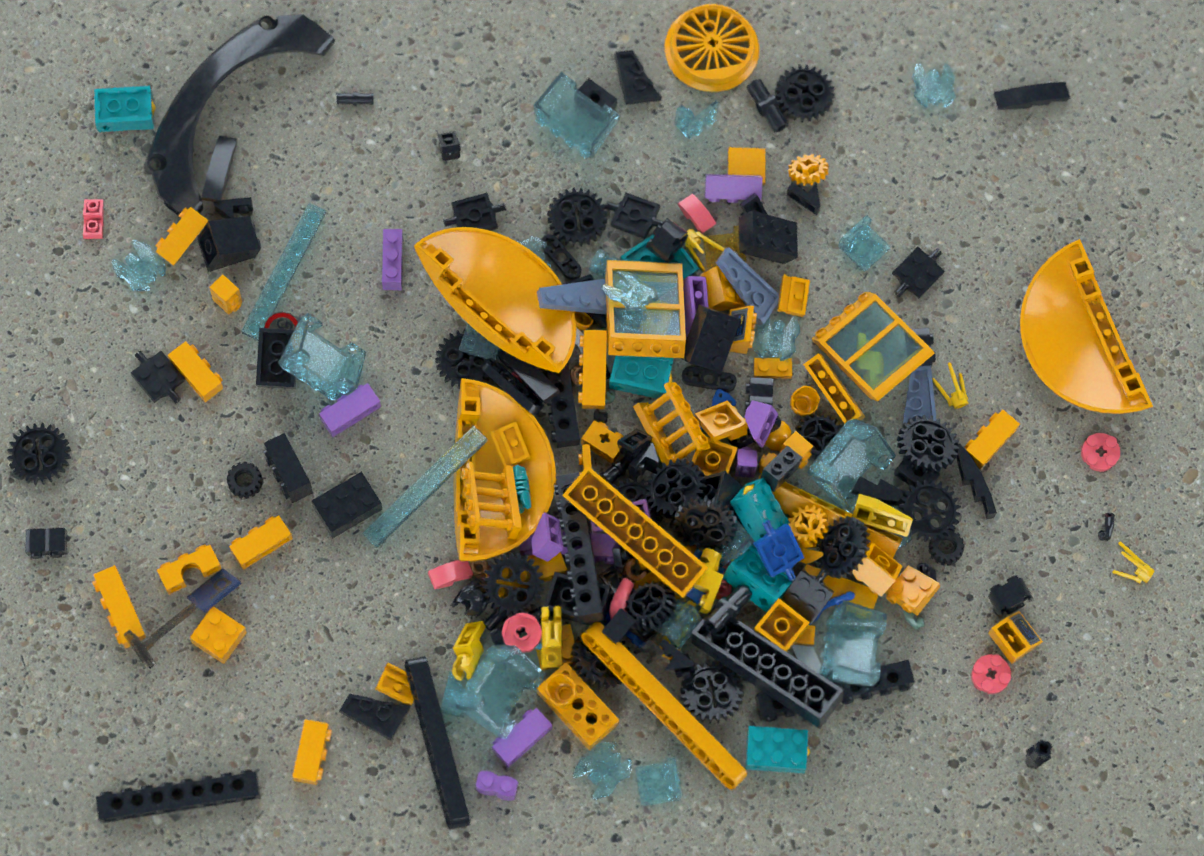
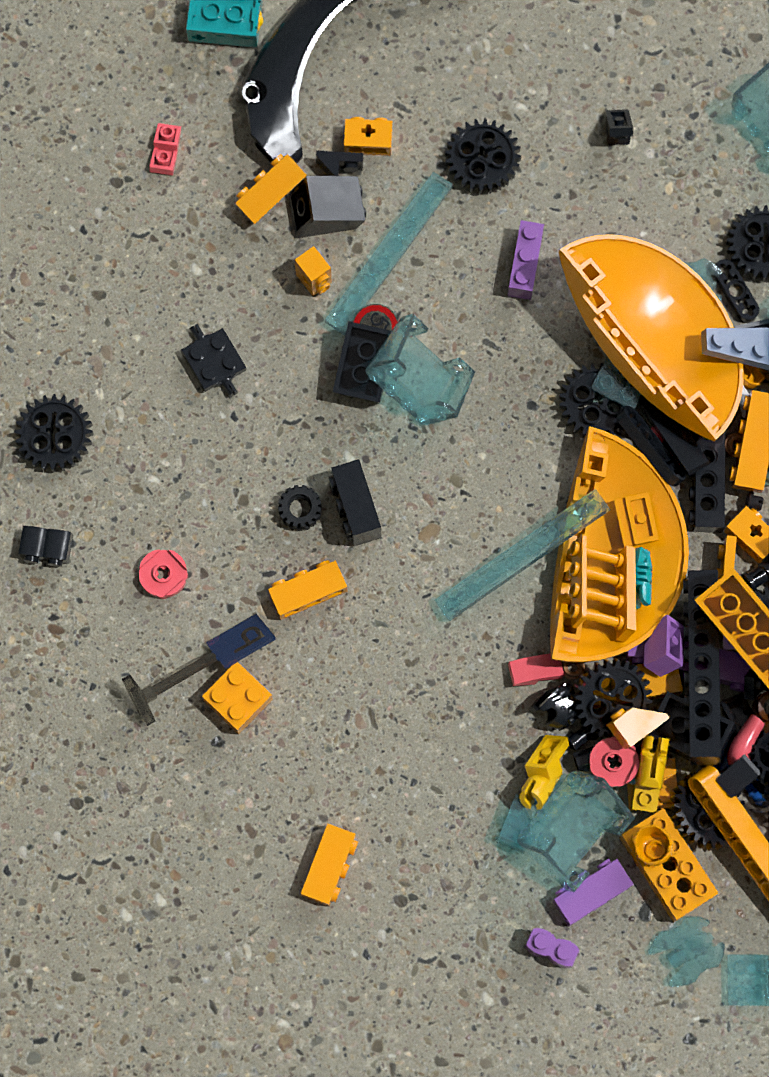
camera: 15 degrees right, 5 degrees up
(107, 813) = (67, 897): black brick -> none
(118, 603) = (122, 639): light orange brick -> none
(141, 268) = (214, 221): clear light blue piece -> none
(143, 538) = (163, 587): none -> coral plate
(196, 371) = (261, 361): light orange brick -> none
(202, 559) = (193, 610): light orange arch -> none
(219, 169) = (329, 111): slope -> none
(263, 183) = (377, 144): none -> light orange brick
(335, 172) = (493, 172): none -> black gear
(347, 505) = (421, 561): black brick -> none
(349, 409) = (443, 441): medium lavender brick -> none
(354, 98) = (510, 48): black pin -> none
(374, 714) = (415, 831): black wing -> none
(395, 684) = (450, 798): light orange plate -> none
(437, 743) = (486, 881): black beam -> none
(475, 213) = (637, 218): black plate -> none
(532, 599) = (634, 724): none -> slope

